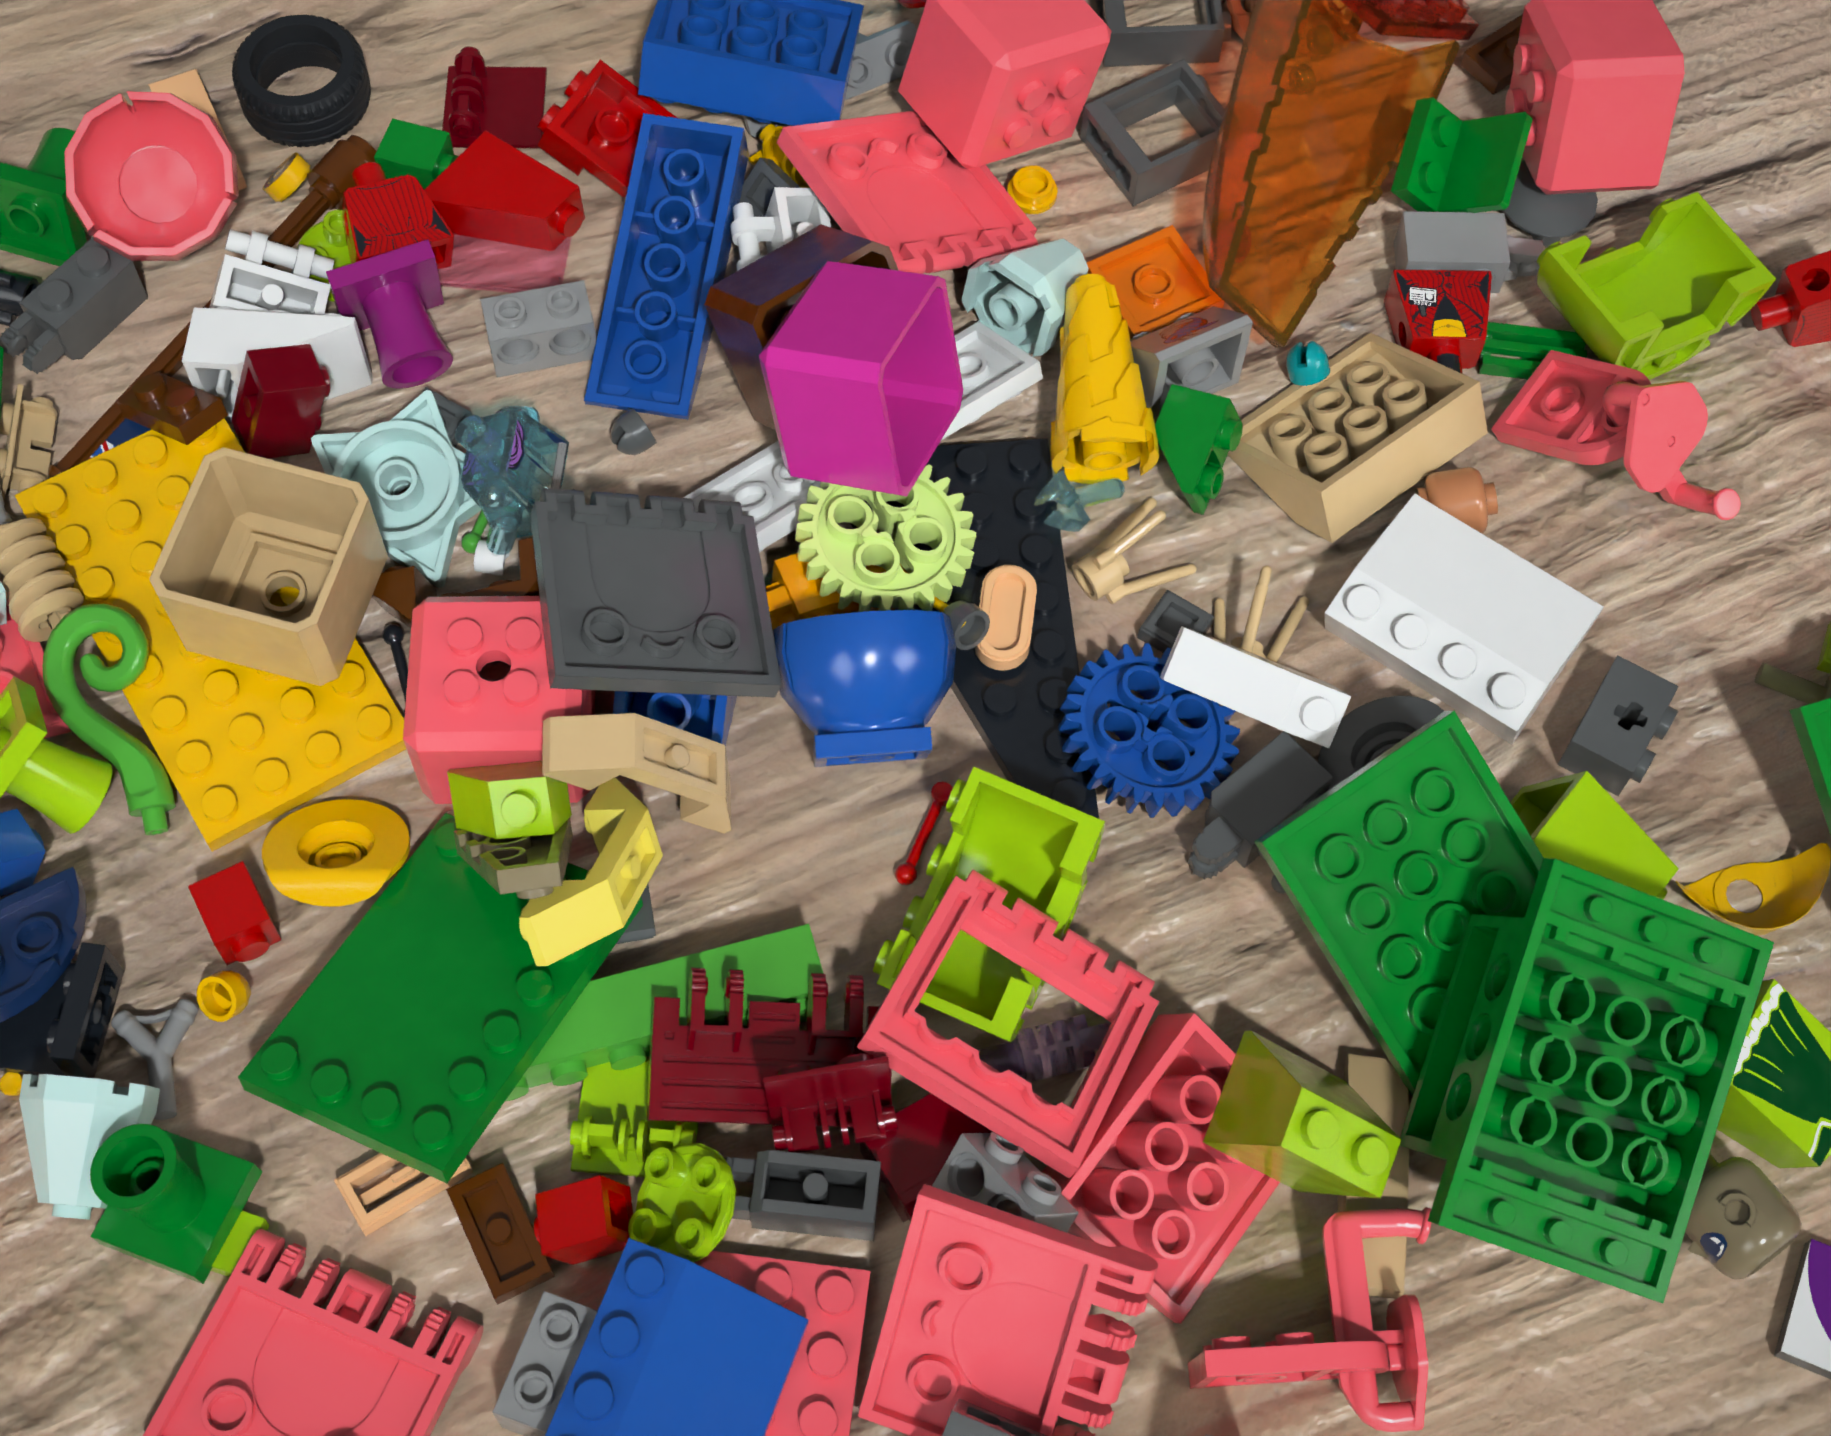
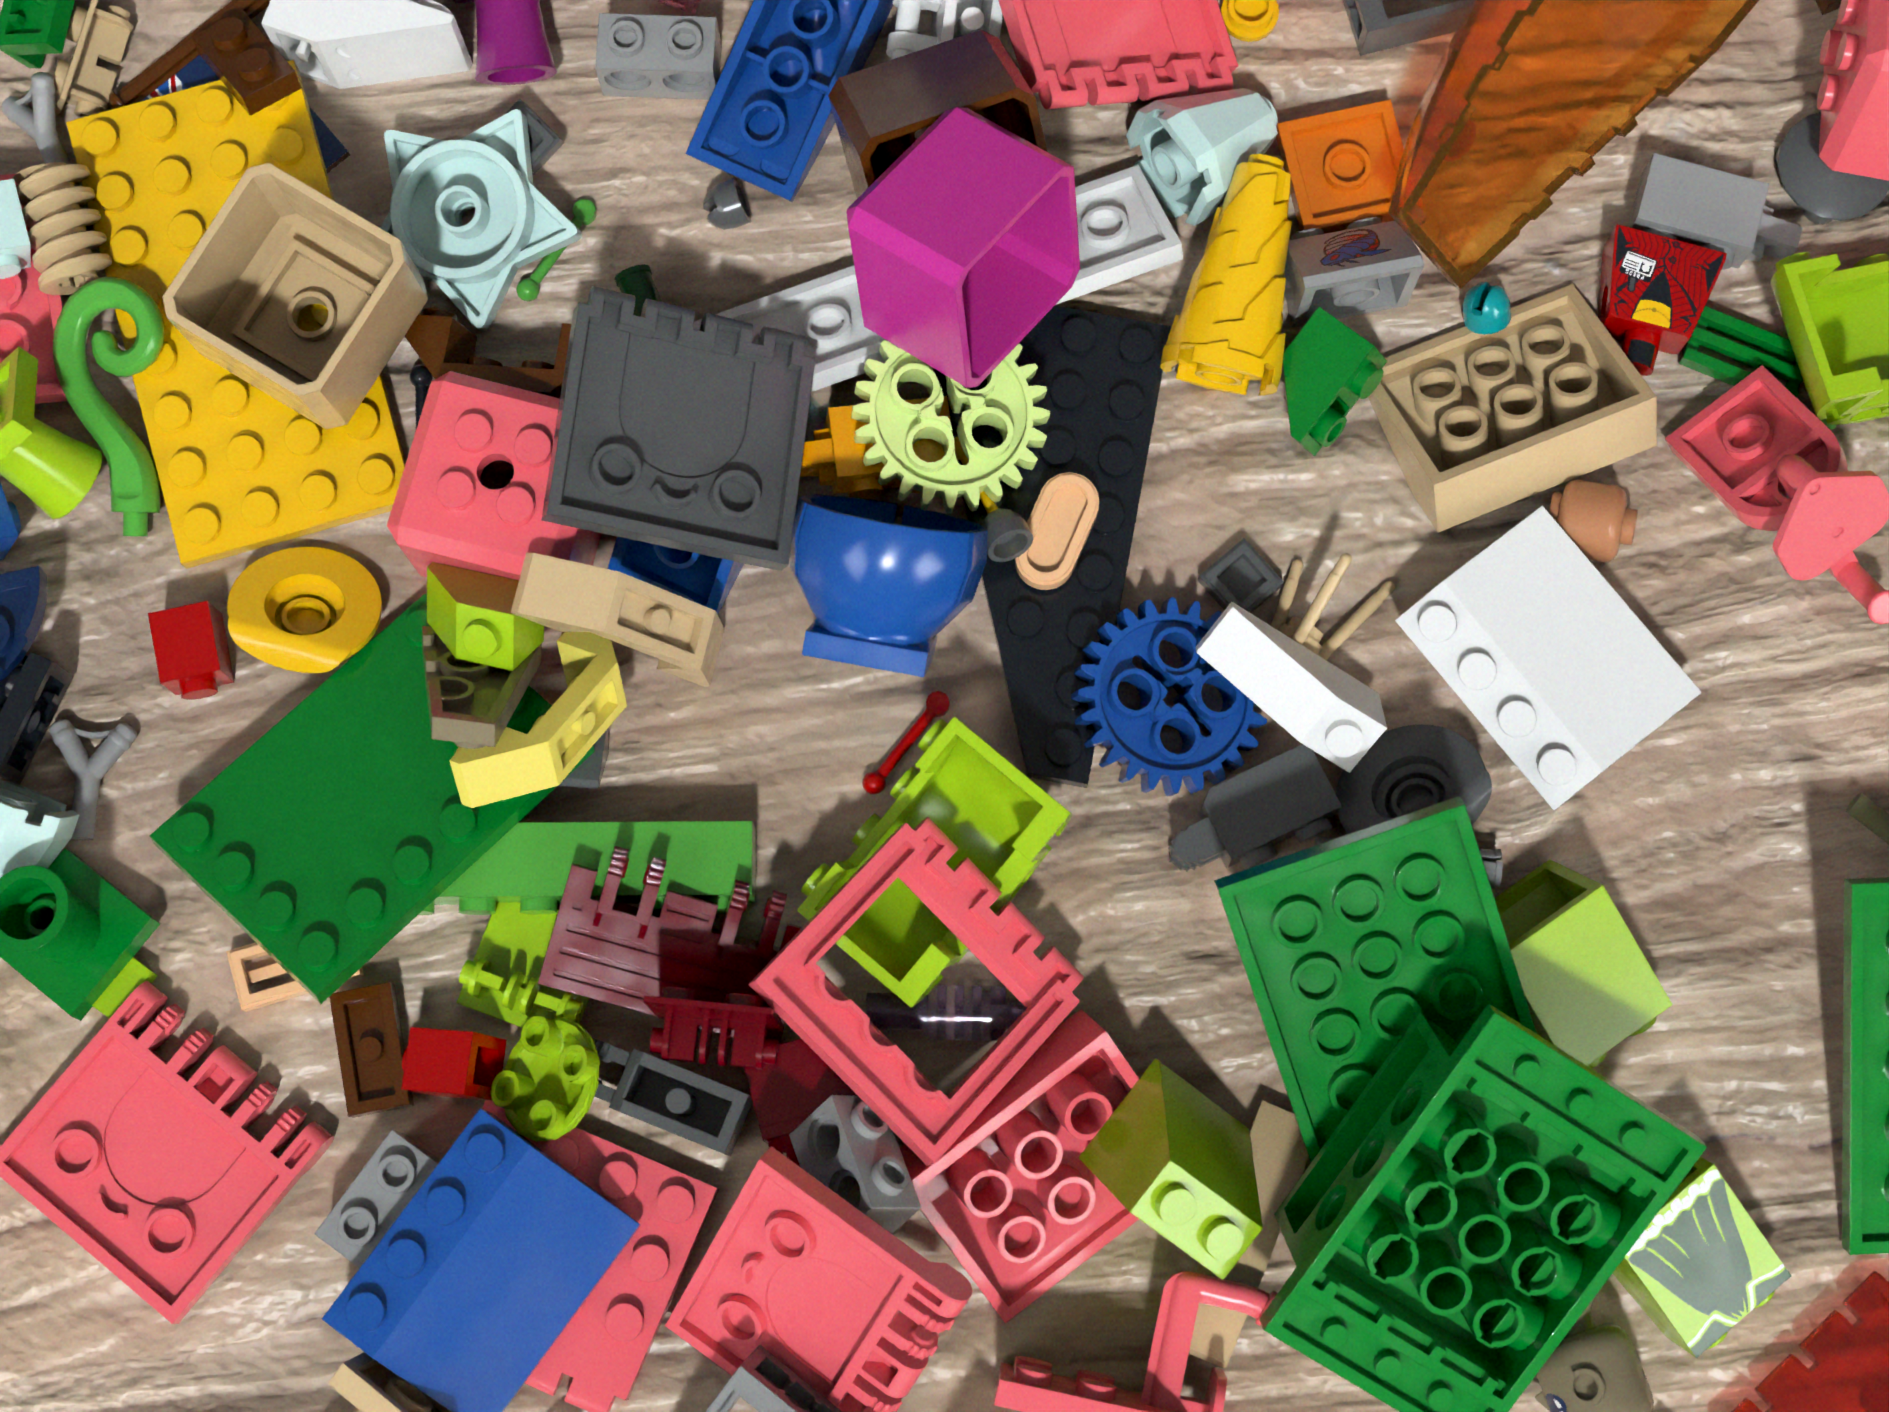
camera: 20 degrees right, 15 degrees up
(223, 1000) = (163, 731): yellow hinge -> none
(279, 401) = (359, 84): dark red brick -> none
(504, 473) = (577, 237): clear light blue torso -> none
(1074, 517) = (1178, 409): clear light blue bar -> none
(1103, 568) = (1183, 495): tan plant -> none
(1460, 162) = (1739, 107): green bracket -> none
(1620, 725) = (1697, 797): dark grey brick -> none
(1786, 887) = (1788, 1055): yellow piece -> none

